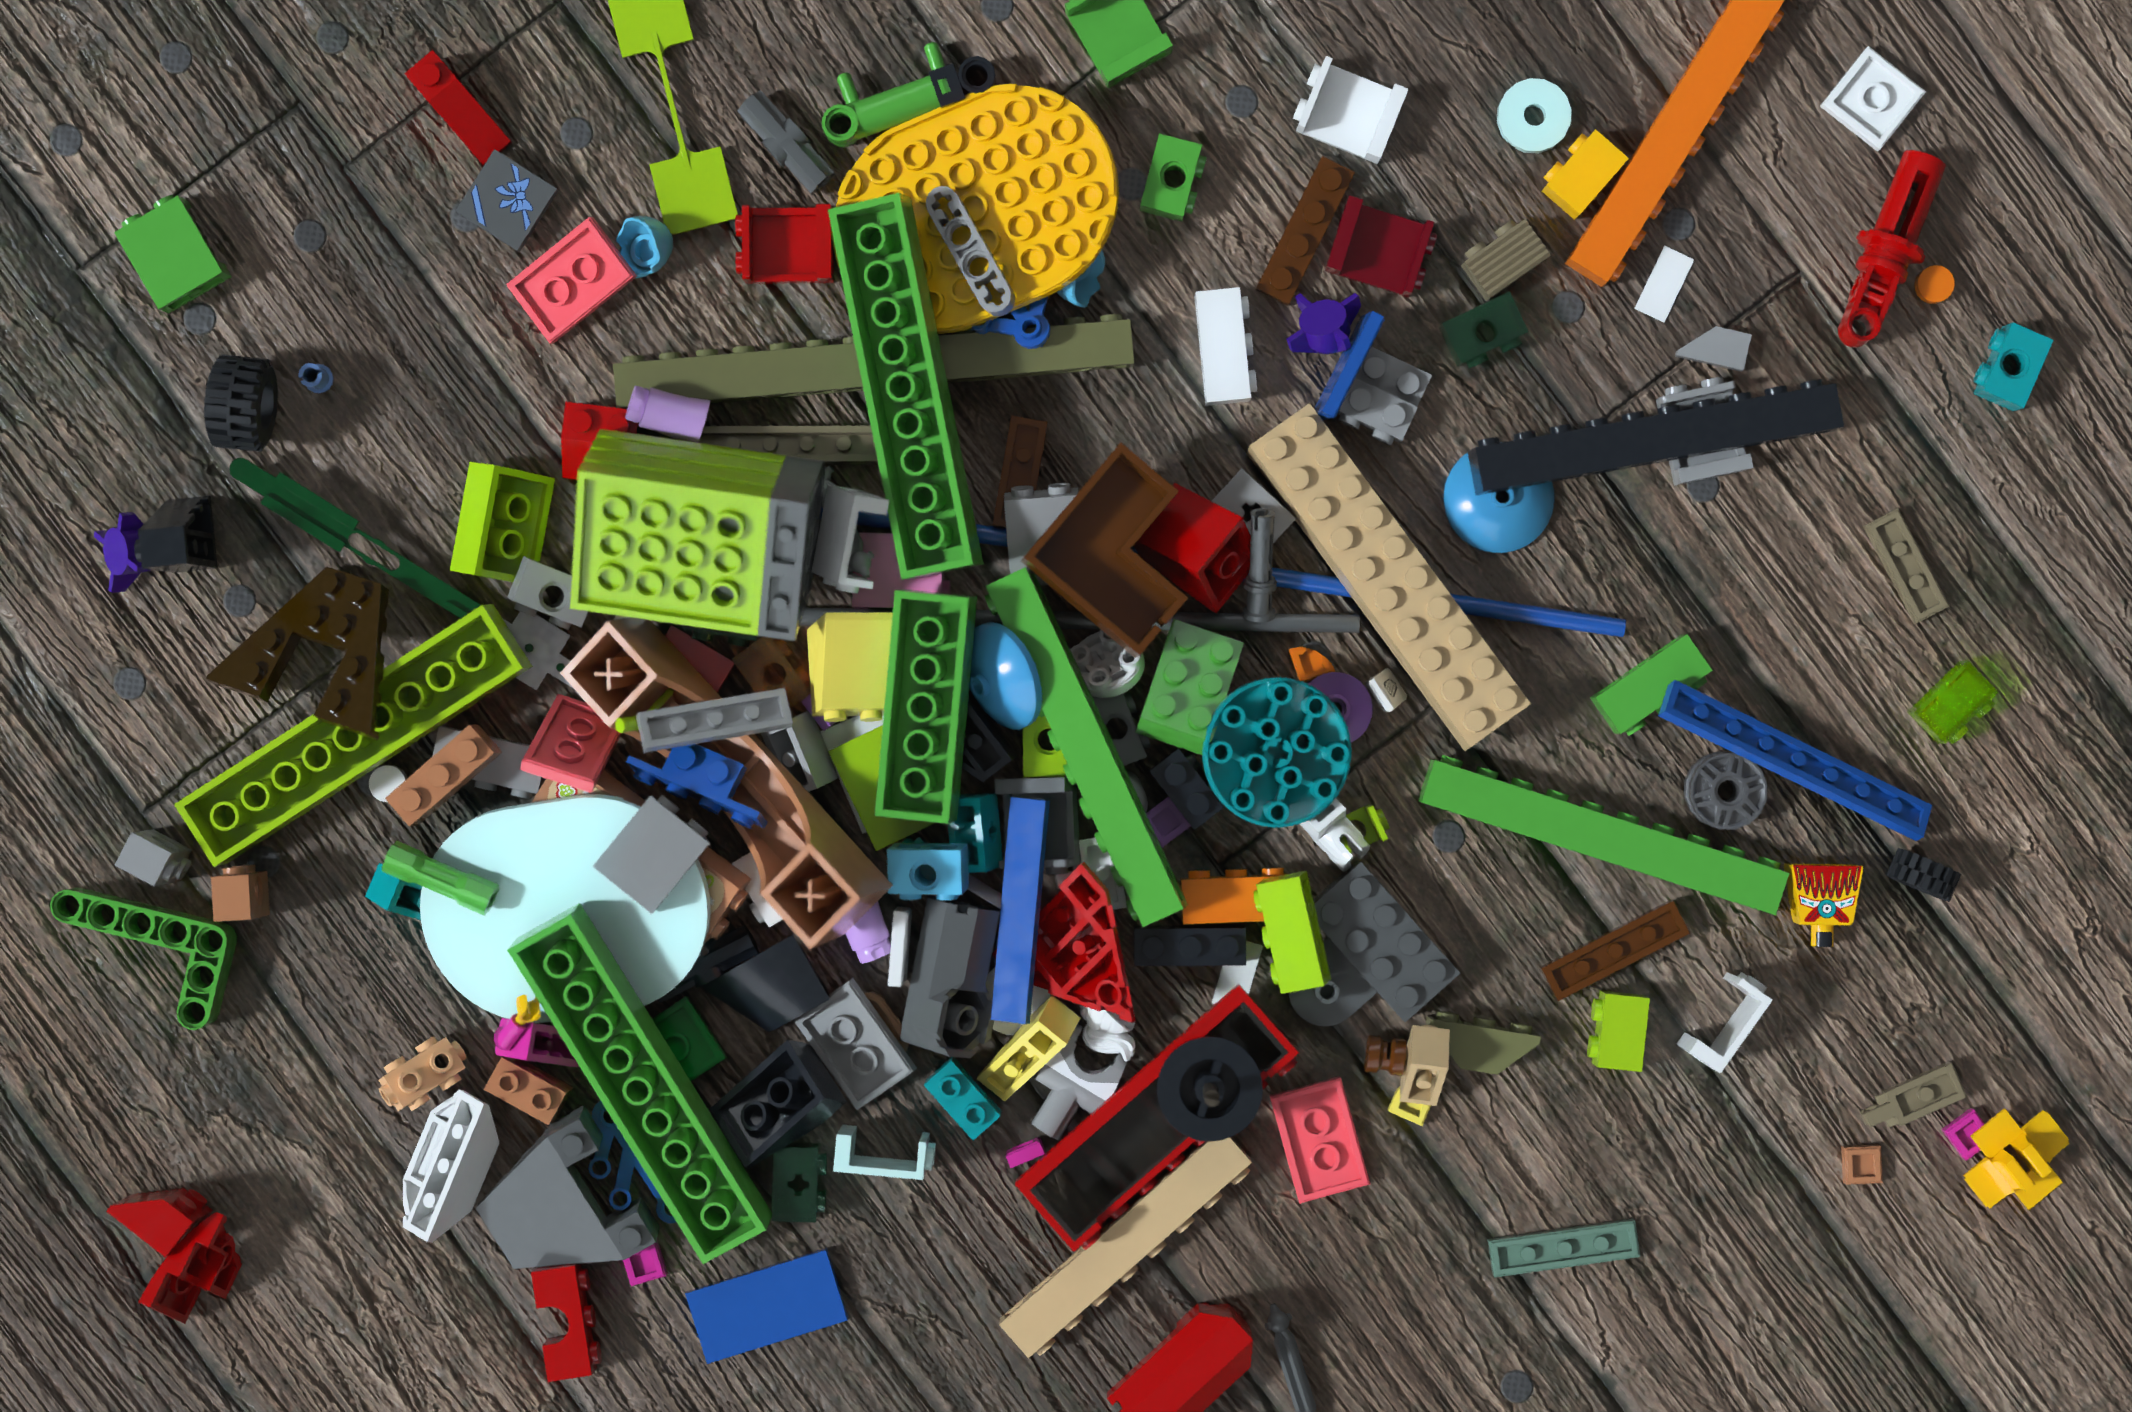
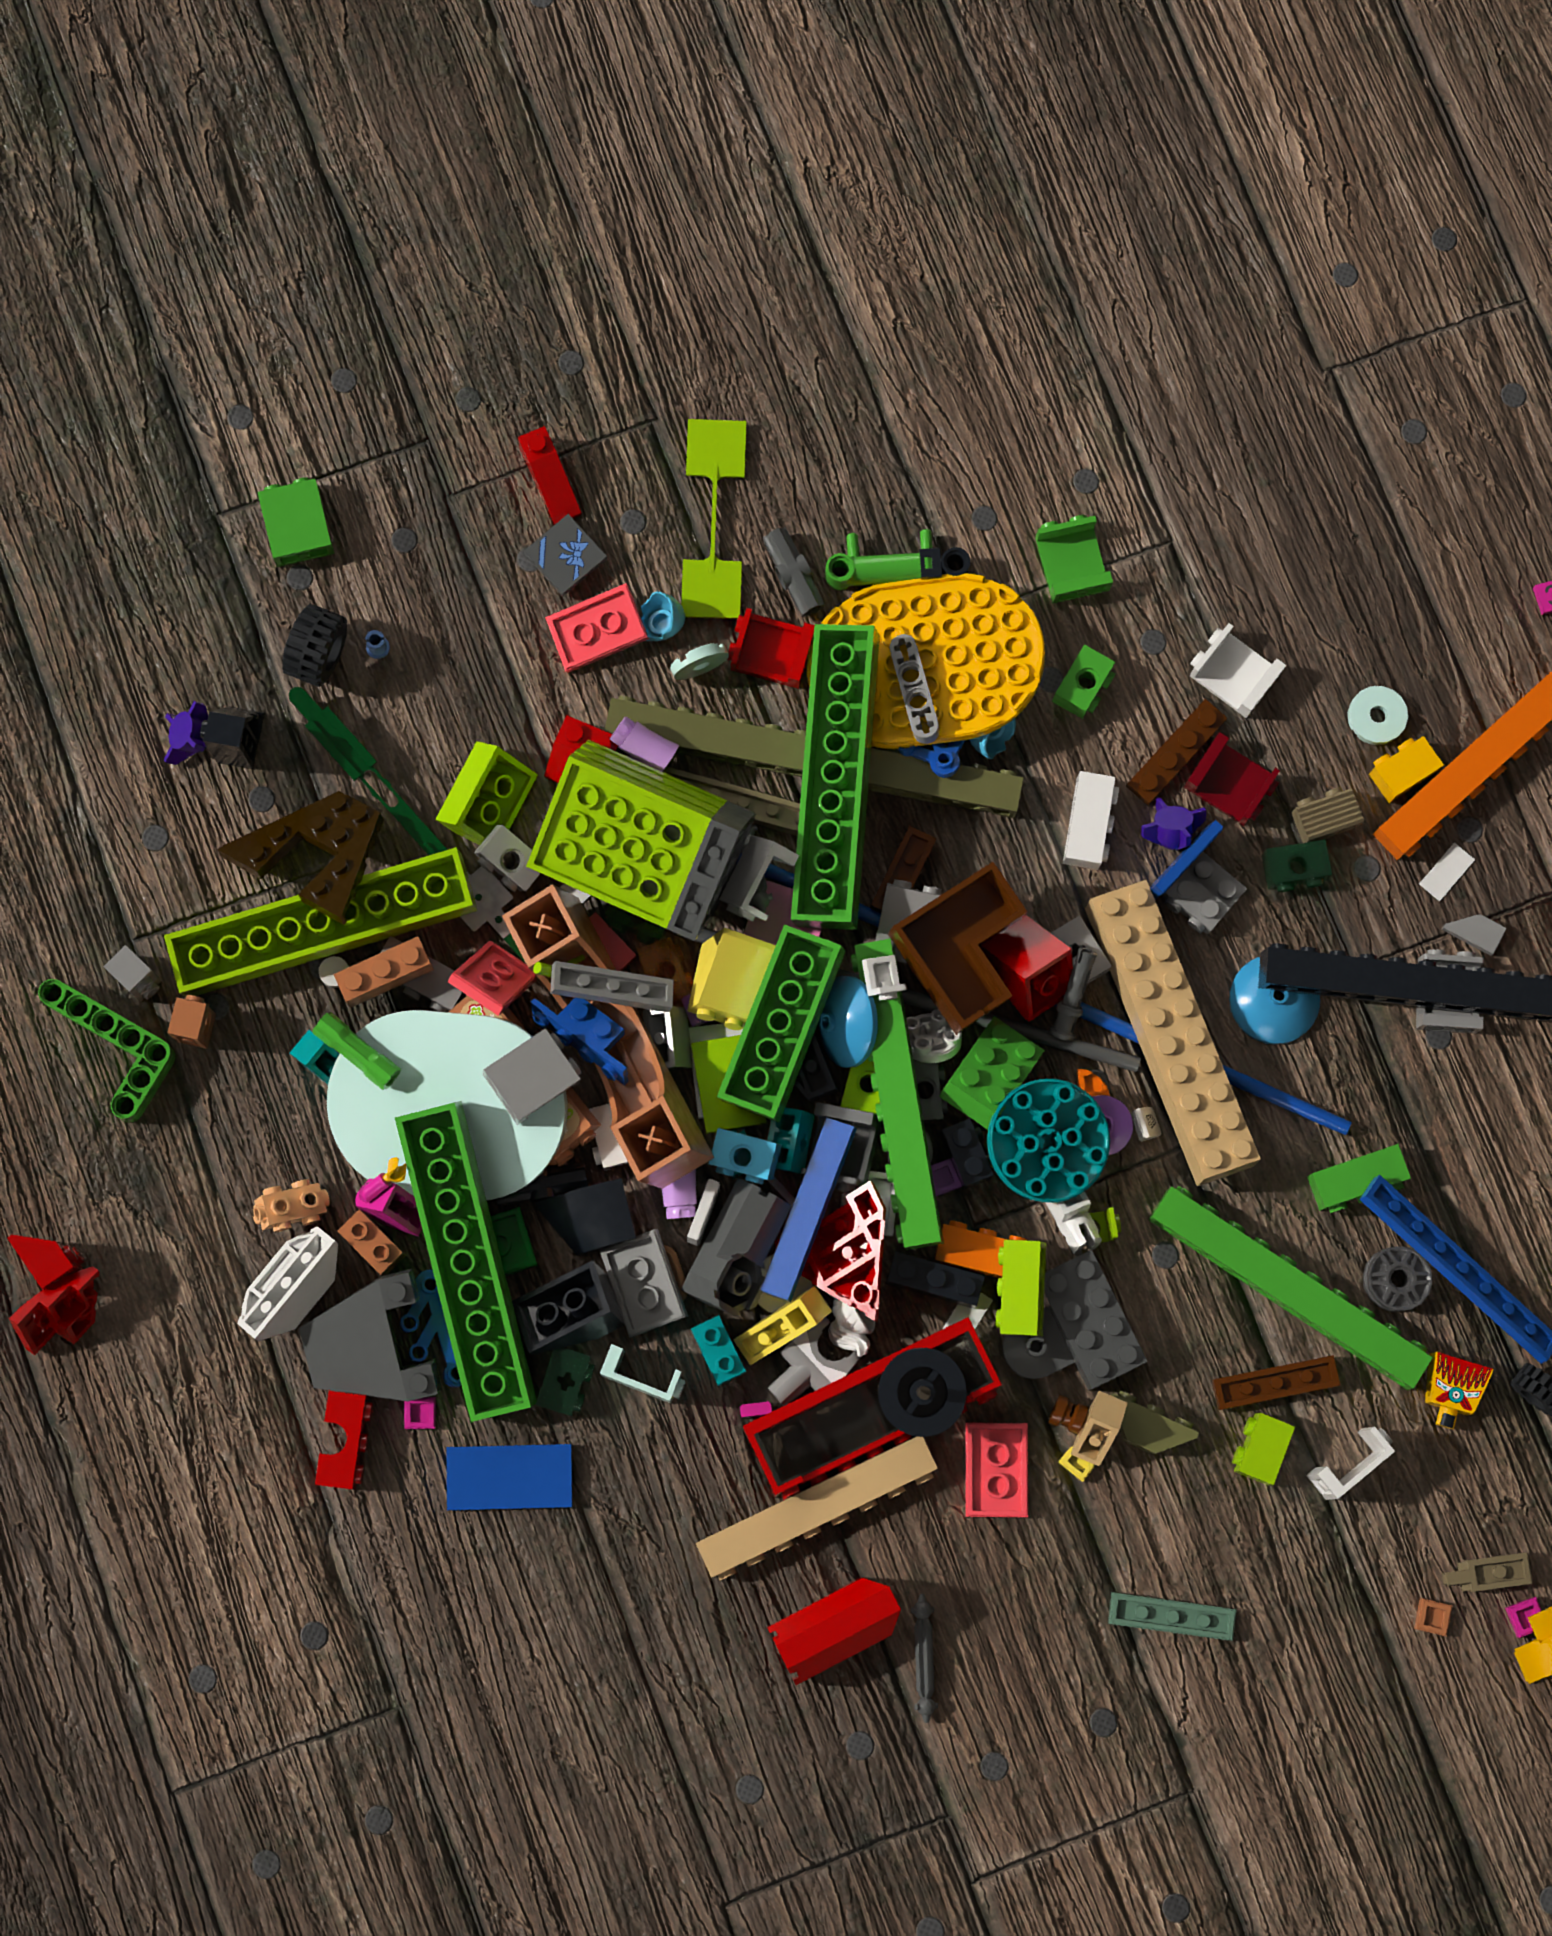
camera: 10 degrees right, 10 degrees down
(704, 288) = (699, 661): none -> light aqua tile
(1029, 619) = (882, 977): none -> white bracket

